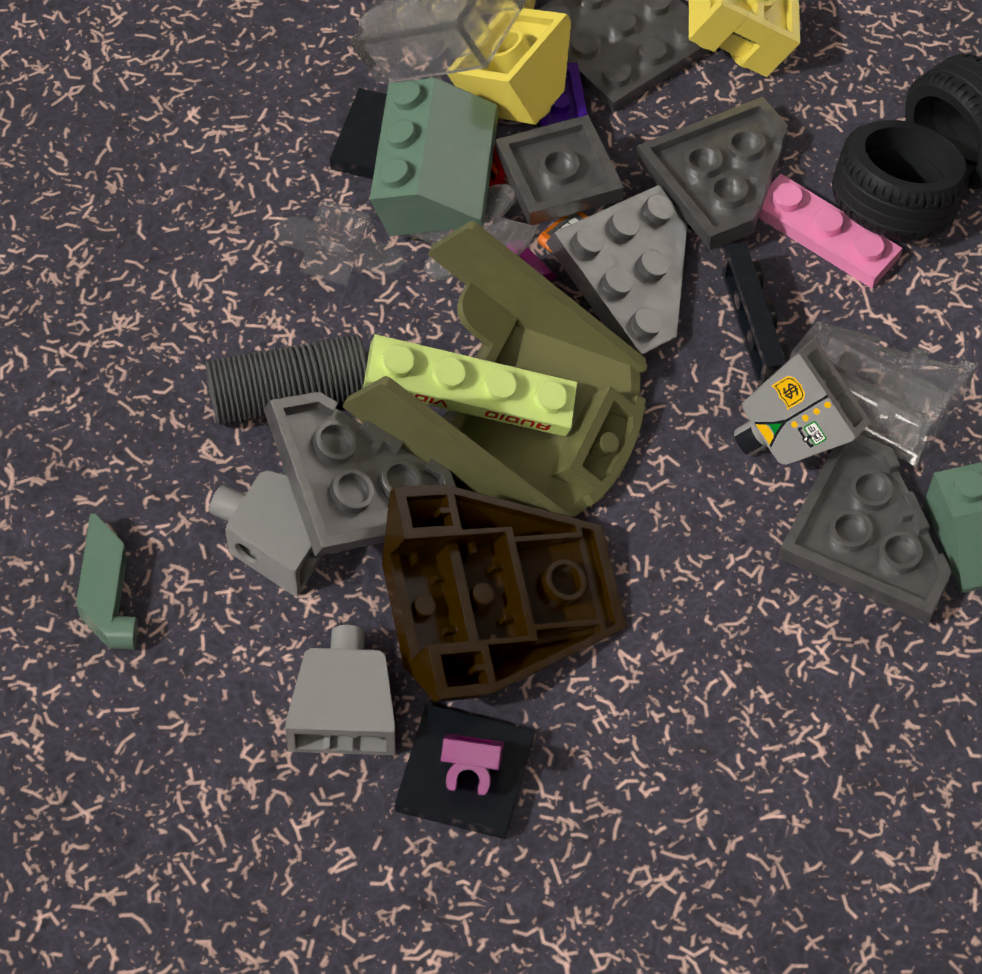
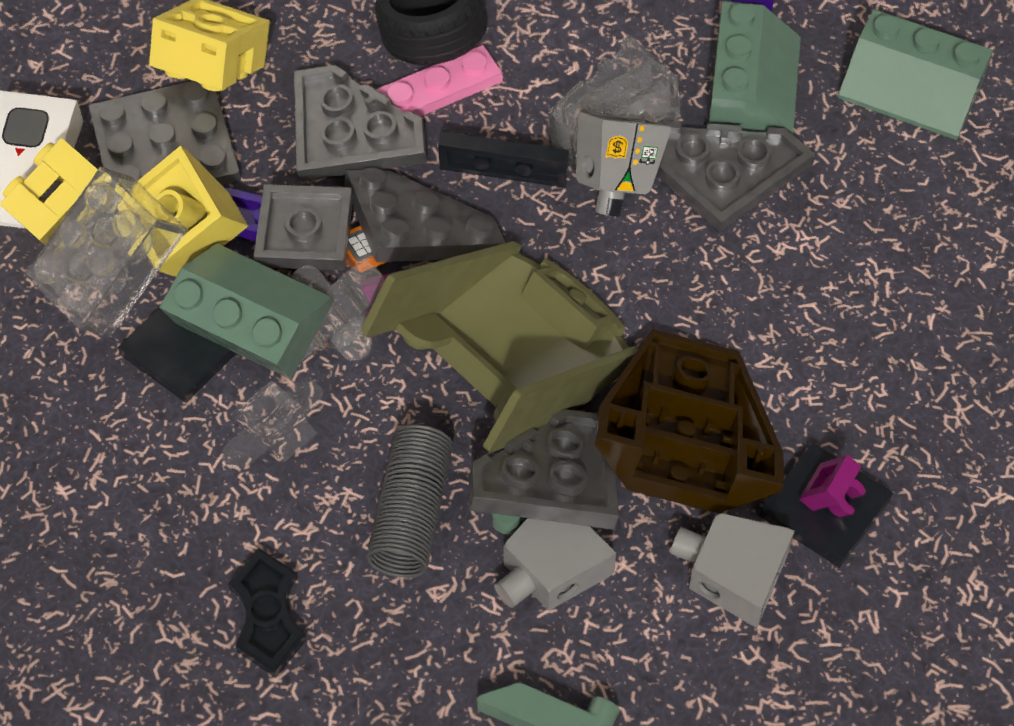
camera: 65 degrees left, 0 degrees up
(106, 325) = (269, 633): none -> black tile
(474, 385) = (489, 366): yellowish green plate -> none

